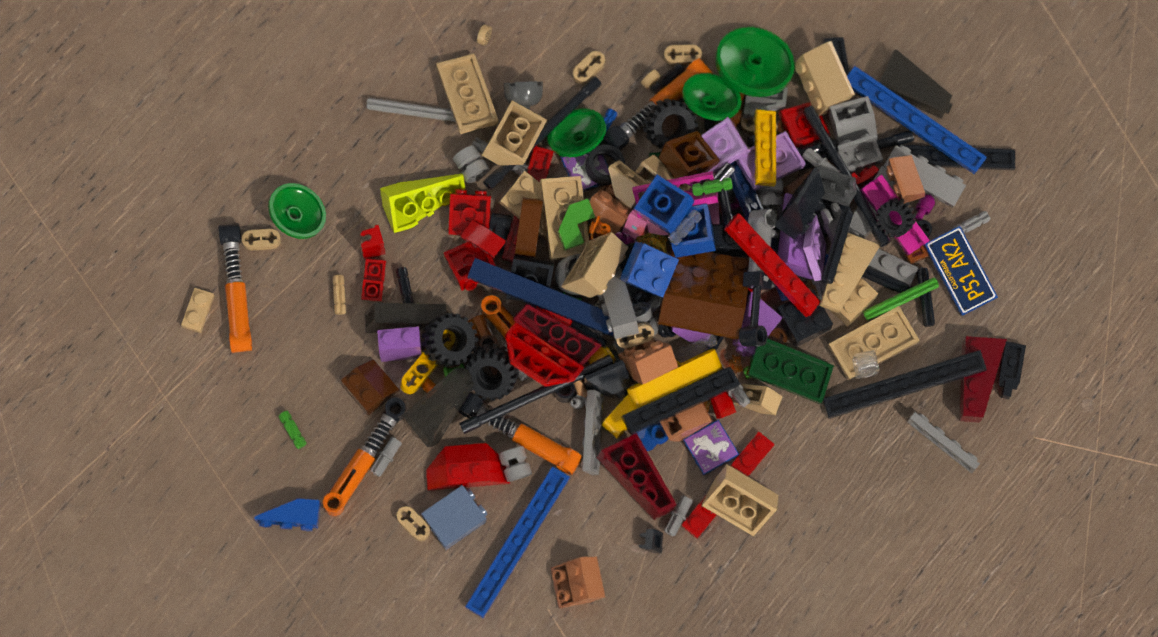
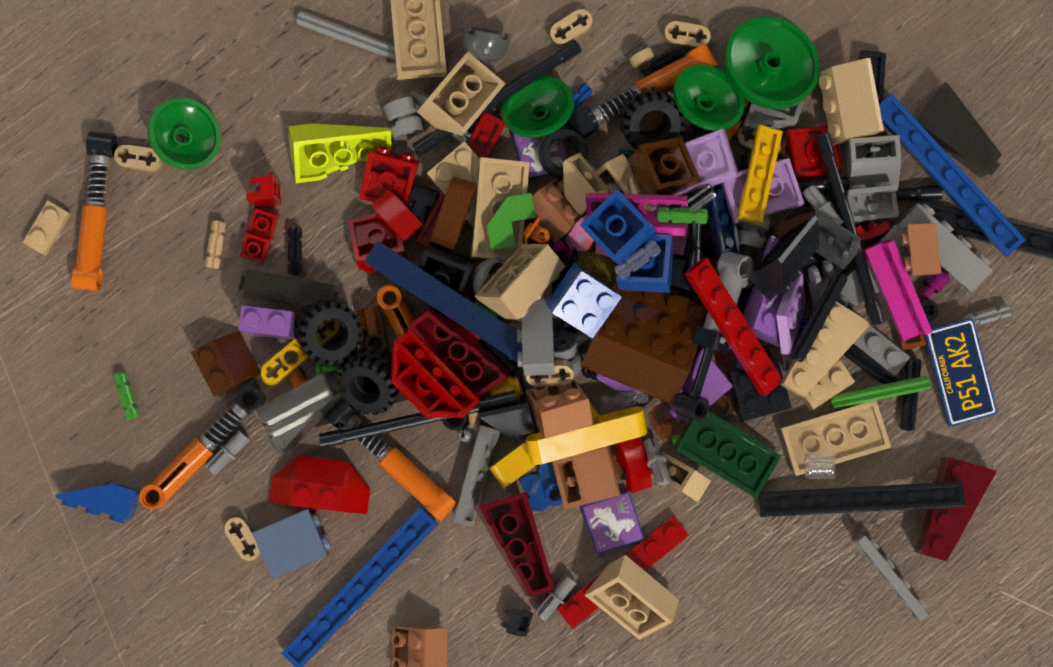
camera: 20 degrees right, 10 degrees up
(516, 471) = (376, 504): light grey wheel -> none
(680, 400) = (586, 465): black tile -> none
(905, 213) = (908, 289): black tyre -> none
(1011, 368) = (993, 505): black hinge -> none

